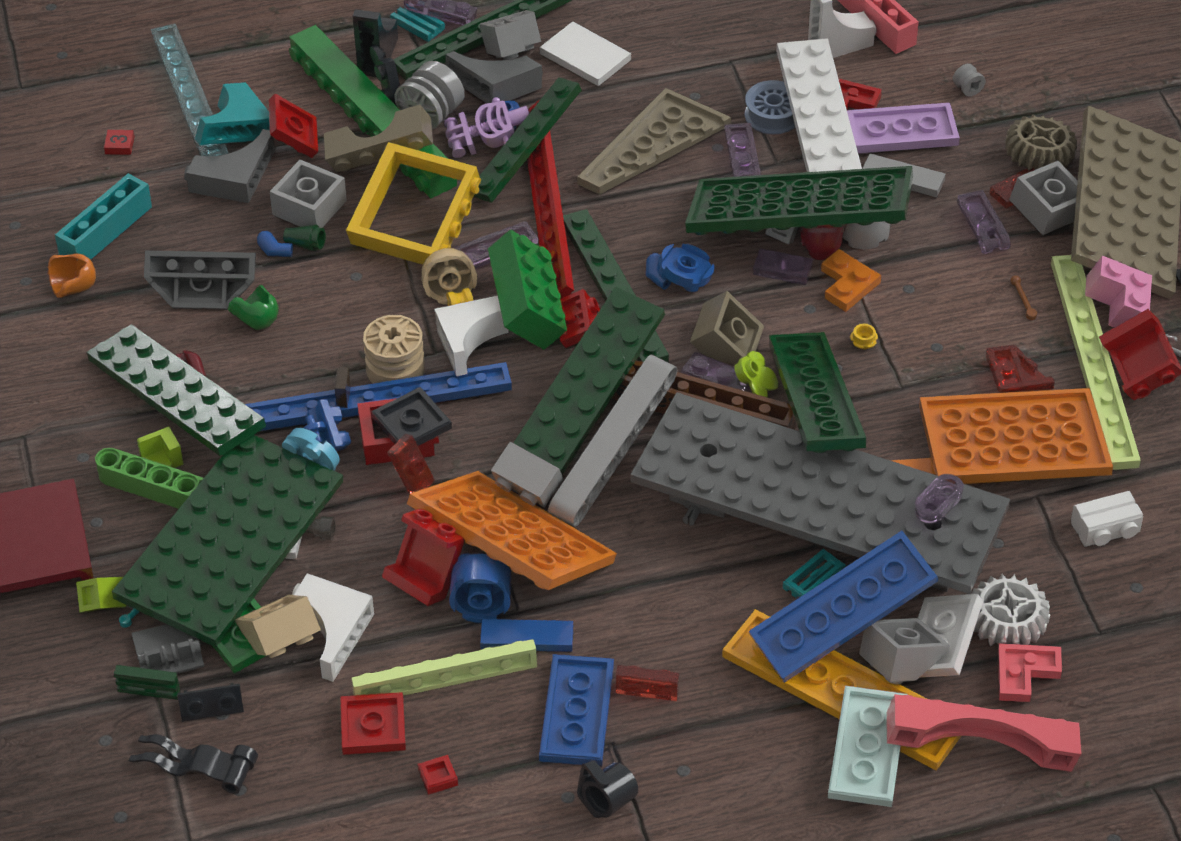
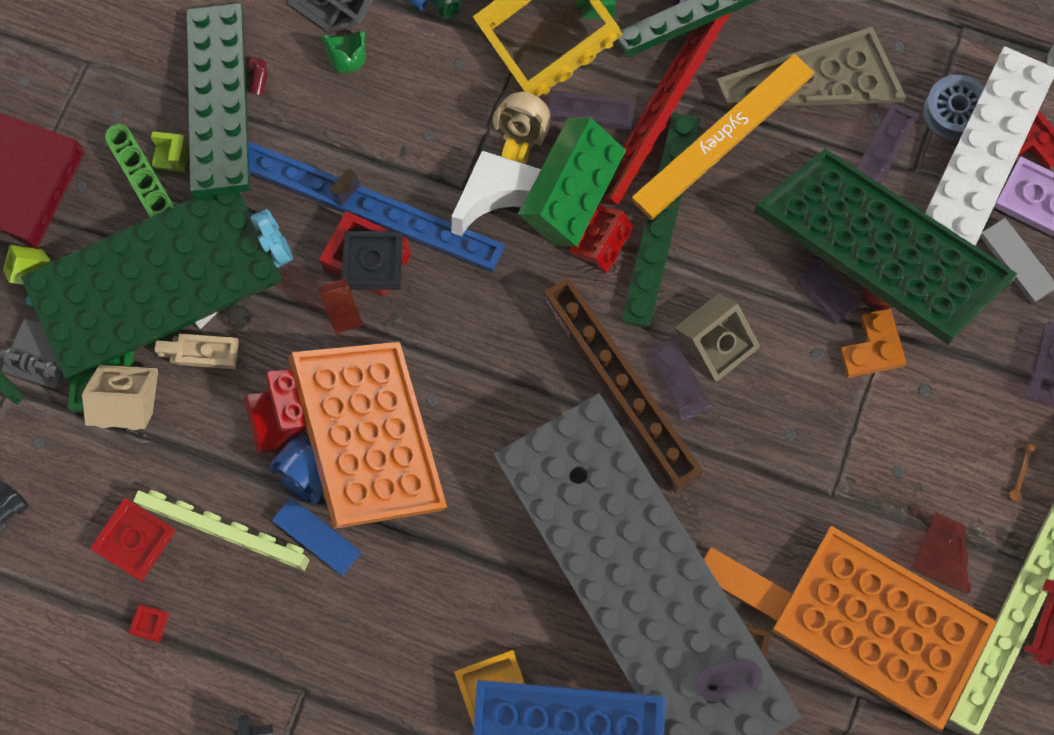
camera: 40 degrees right, 25 degrees up
(210, 702) = (21, 422): black hinge -> none
(320, 563) = (200, 351): none -> tan hinge
(323, 422) = (303, 230): blue hips -> none
(341, 617) = (181, 417): white arch -> none
(393, 349) = (417, 173): tan wheel -> none
(526, 475) = (423, 382): light grey brick -> none
(576, 710) = (300, 640): blue tile -> none
(590, 378) = (534, 325): dark green plate -> none
(612, 440) = (522, 395): light grey beam -> none
(616, 208) = (722, 137): none -> light orange tile
(647, 682) = (362, 648): clear red plate -> none
(652, 270) = (708, 223): blue arm -> none
(673, 266) = (740, 226): blue plate -> none
(752, 370) = (703, 403): lime plate -> none
(817, 392) = (727, 472): dark green plate -> none
(822, 574) = (584, 647): teal tile -> none
(864, 336) = (840, 414): yellow plate -> none

